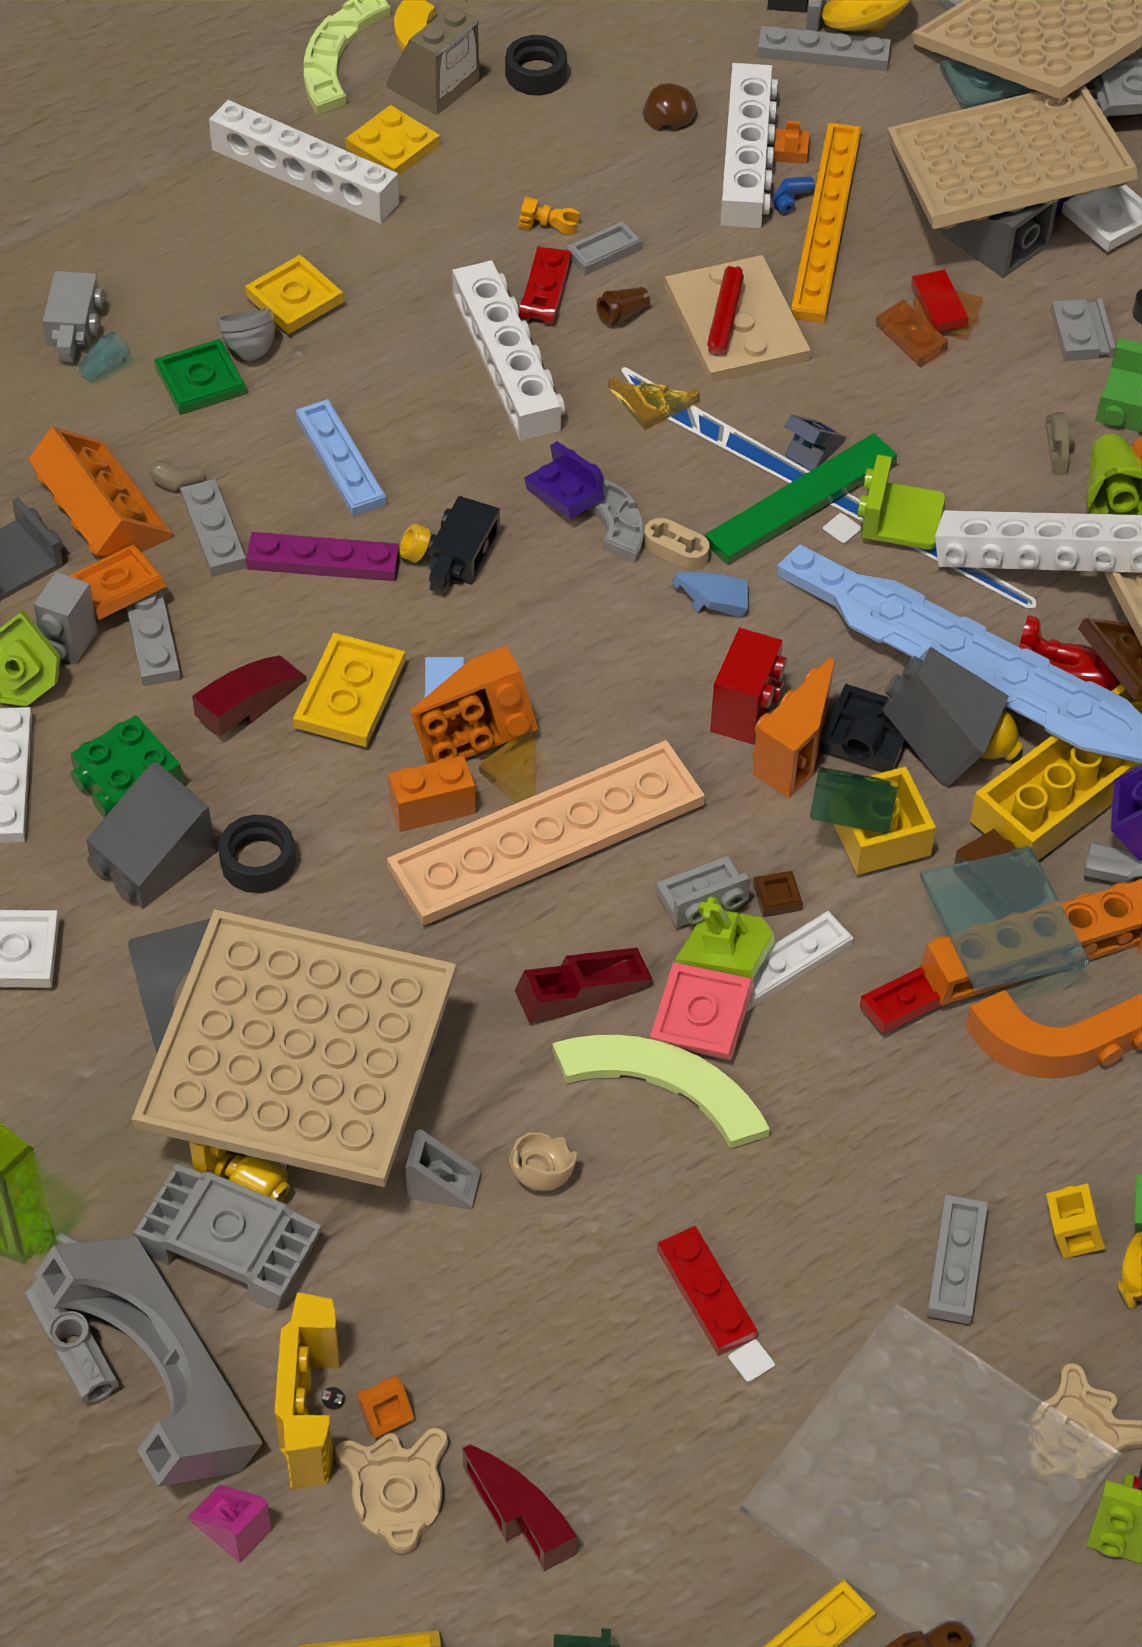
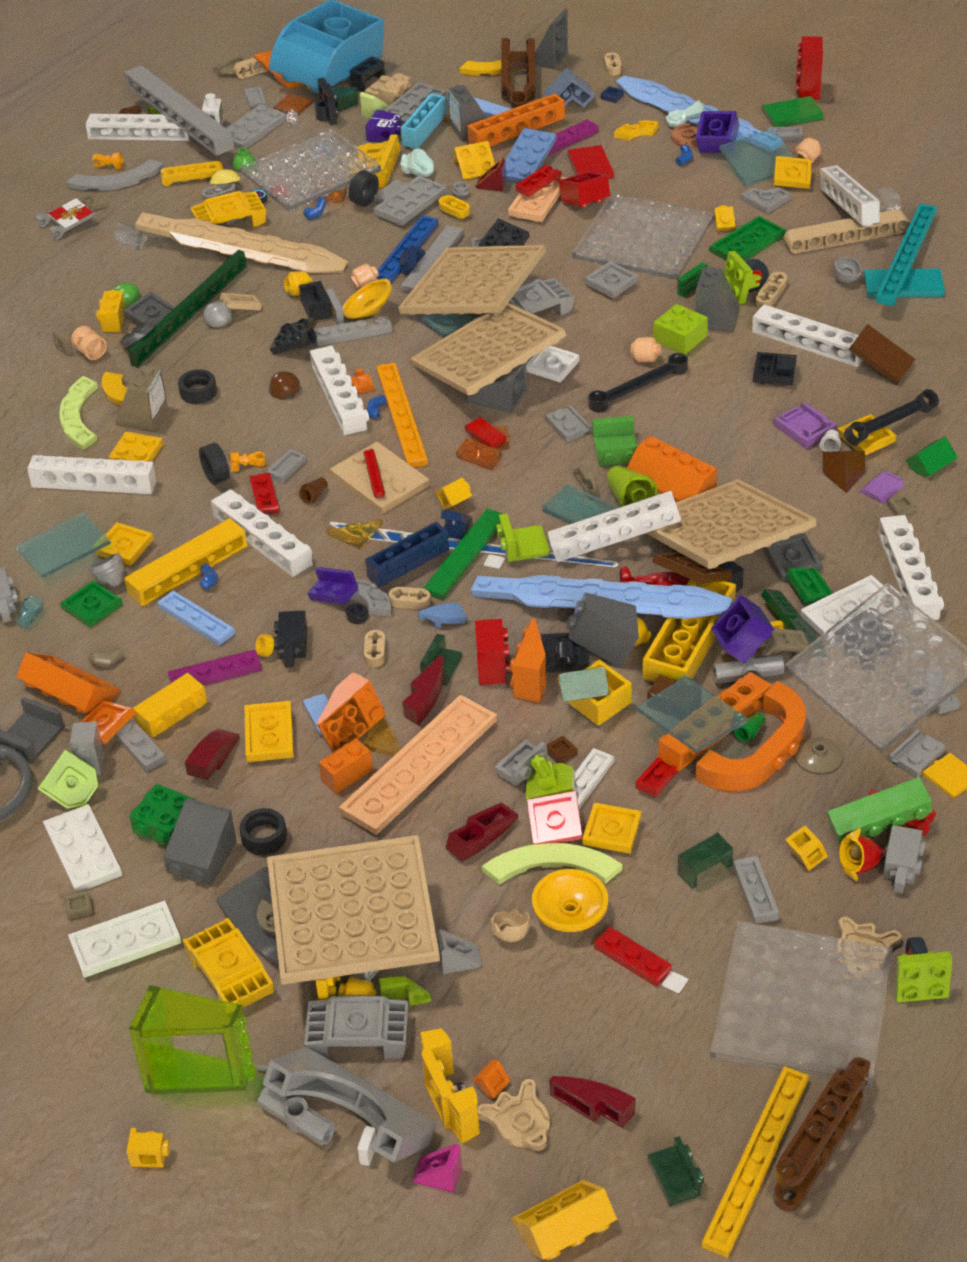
camera: 20 degrees left, 10 degrees down
(92, 1055) = (229, 964): none -> yellow plate
(138, 1432) = (365, 1146): none -> white tile
(204, 264) = (63, 545): none -> clear light blue piece
(213, 527) = (139, 674): light grey plate -> none
(226, 590) = (170, 705): none -> yellow brick
(326, 1196) = (402, 987): none -> lime slope
(369, 358) = (185, 562): none -> yellow brick
(393, 397) = (210, 576): none -> blue arm
(490, 206) = (214, 463): none -> black tyre
(573, 607) = (370, 648): none -> tan beam
(583, 539) = (356, 613): none -> black tile
(616, 713) = (424, 692): none -> dark red slope
(656, 1140) = (570, 900): none -> yellow dish
(665, 670) = (450, 657): none -> clear green panel
(706, 468) = (407, 554): none -> dark blue brick
(726, 28) = (295, 336): none -> black plate
(786, 1060) = (612, 828): none -> yellow plate
(833, 388) = (453, 493): none -> yellow brick
(900, 1171) = (702, 857): none -> clear green panel
(1022, 480) = (575, 505): none -> clear light blue tile
(1098, 974) = (751, 728): none -> green cone

